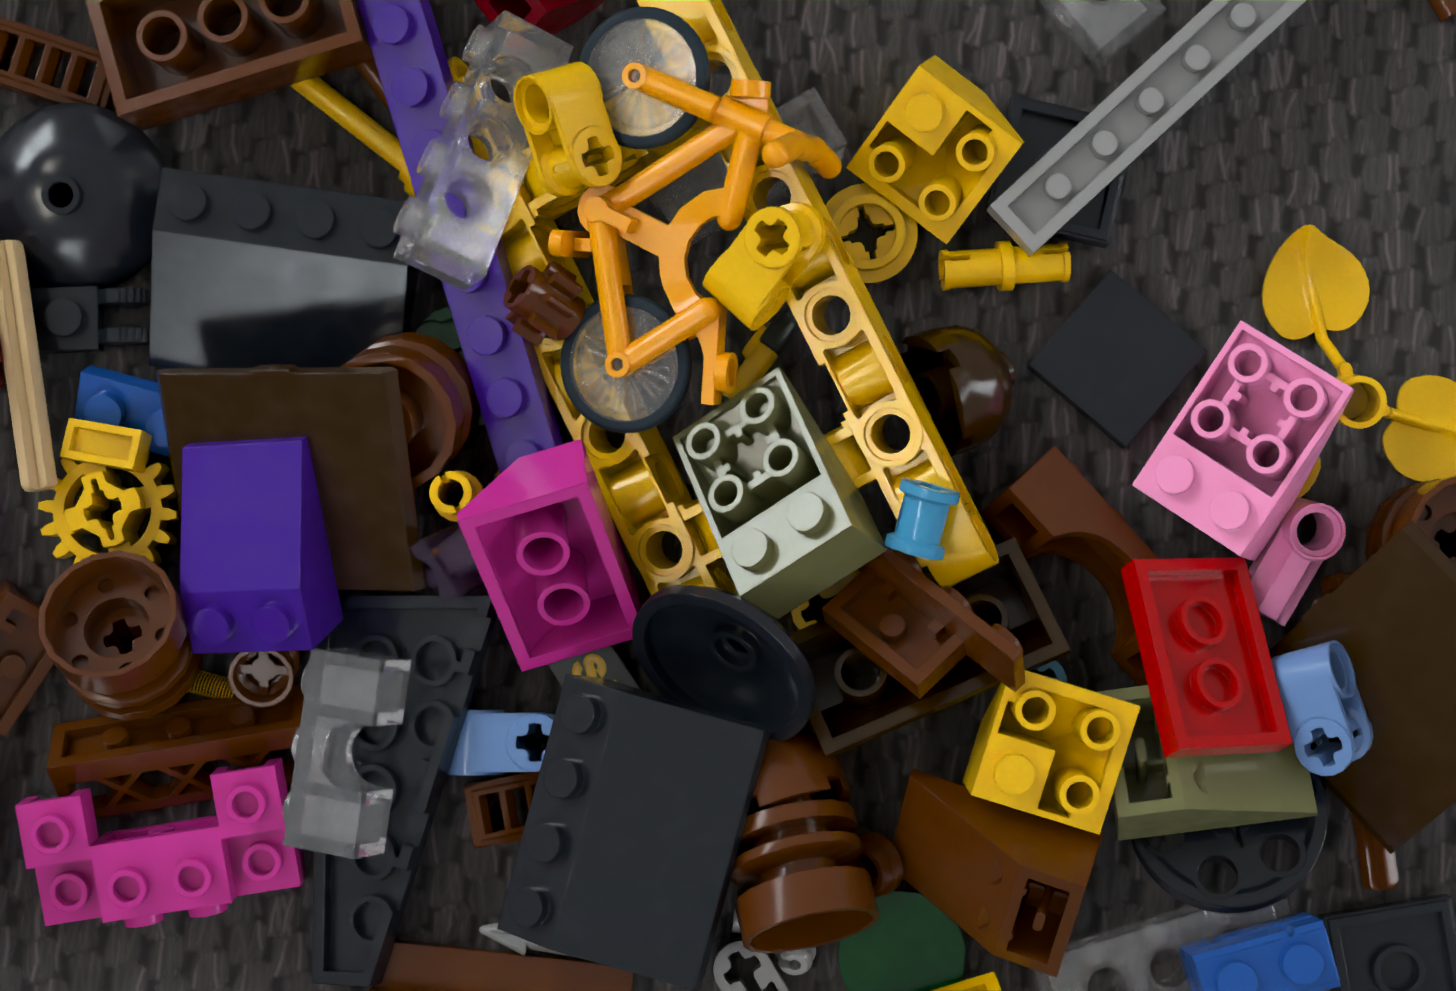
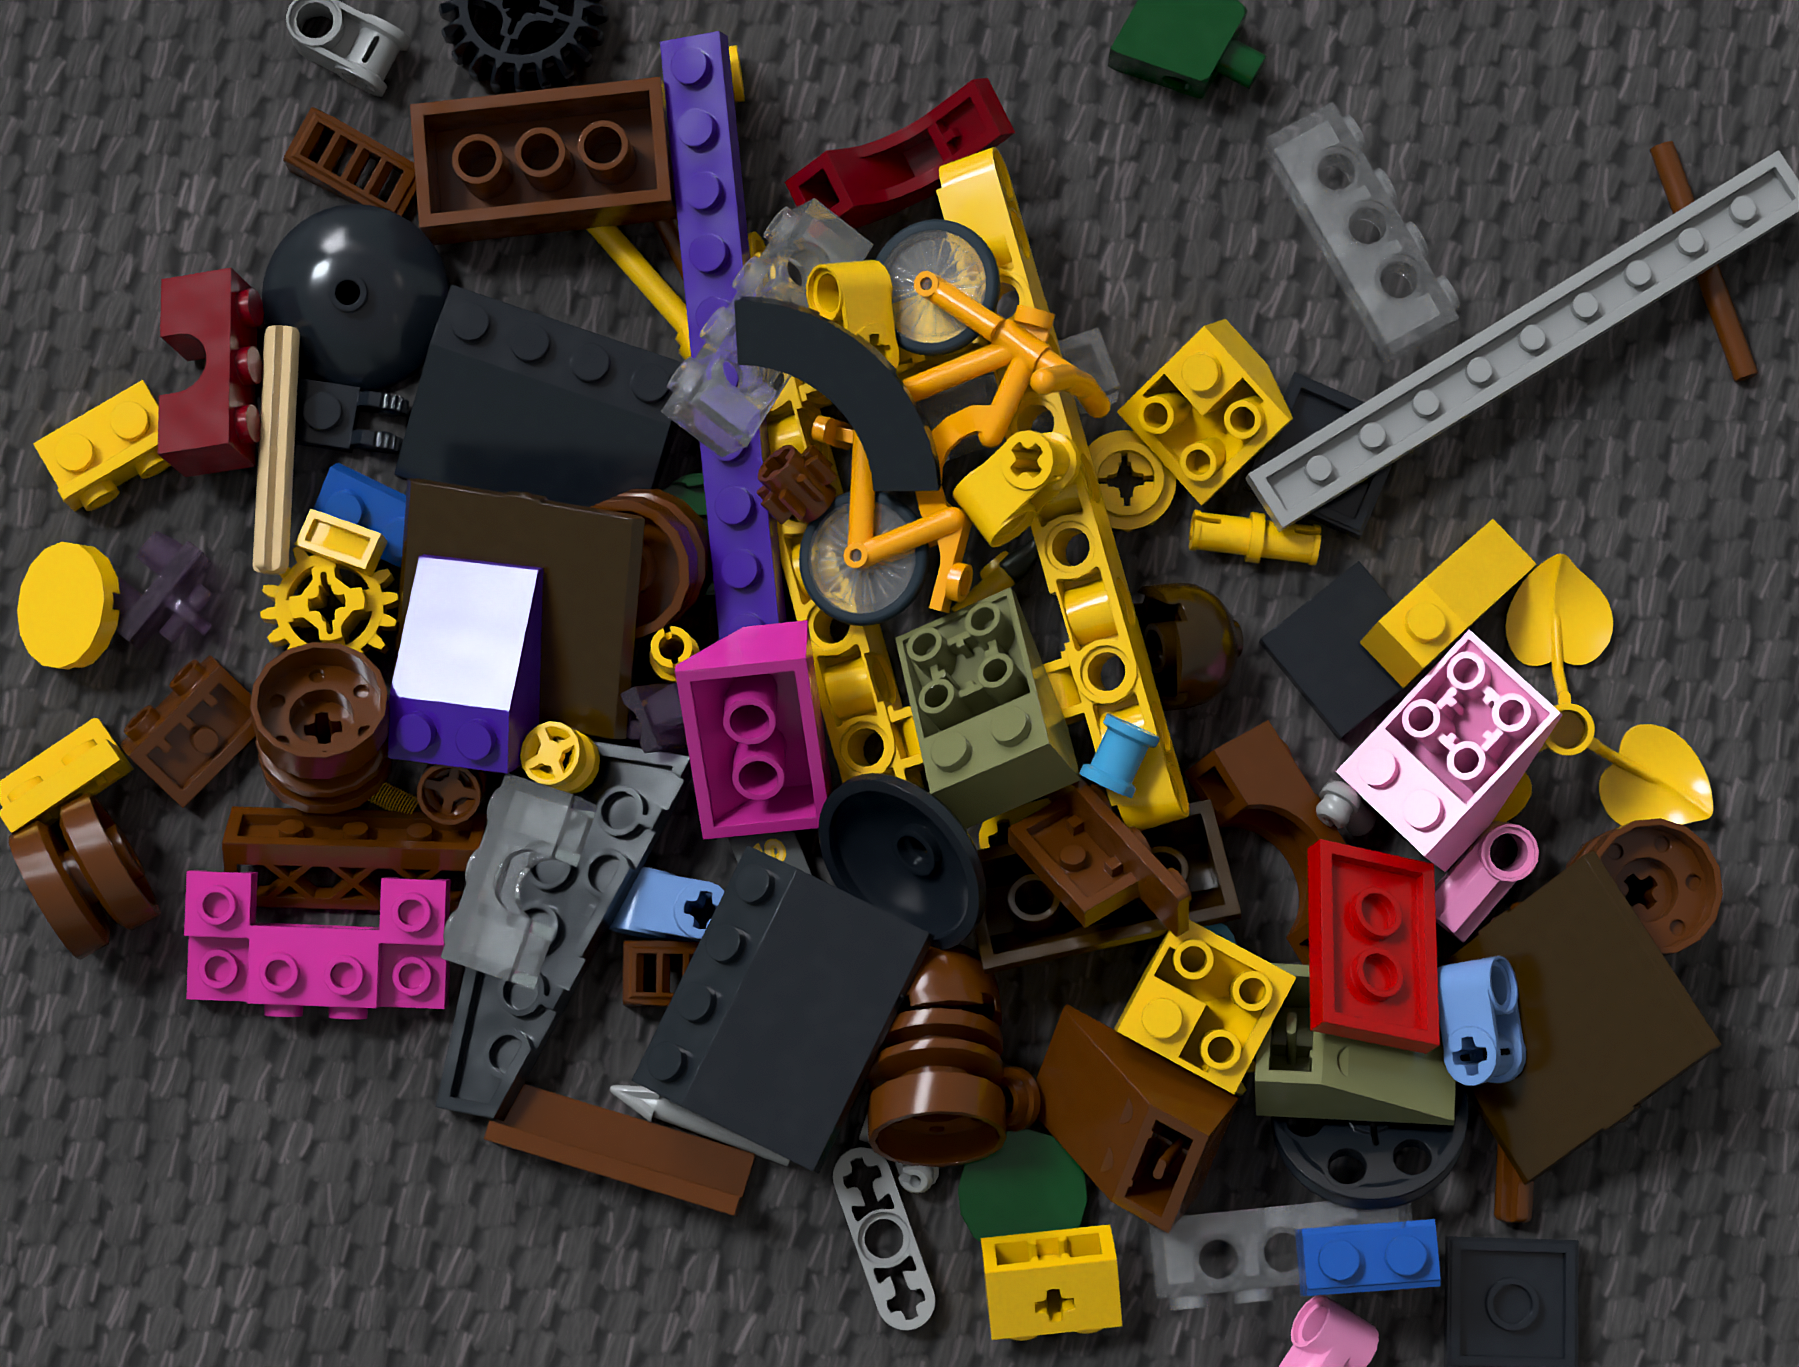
camera: 10 degrees right, 5 degrees down
(347, 620) = (544, 755): none -> yellow wheel
(578, 186) = (852, 377): none -> black tile
(1144, 517) = (1344, 808): none -> light grey arm
(1206, 297) = (1447, 603): none -> yellow slope

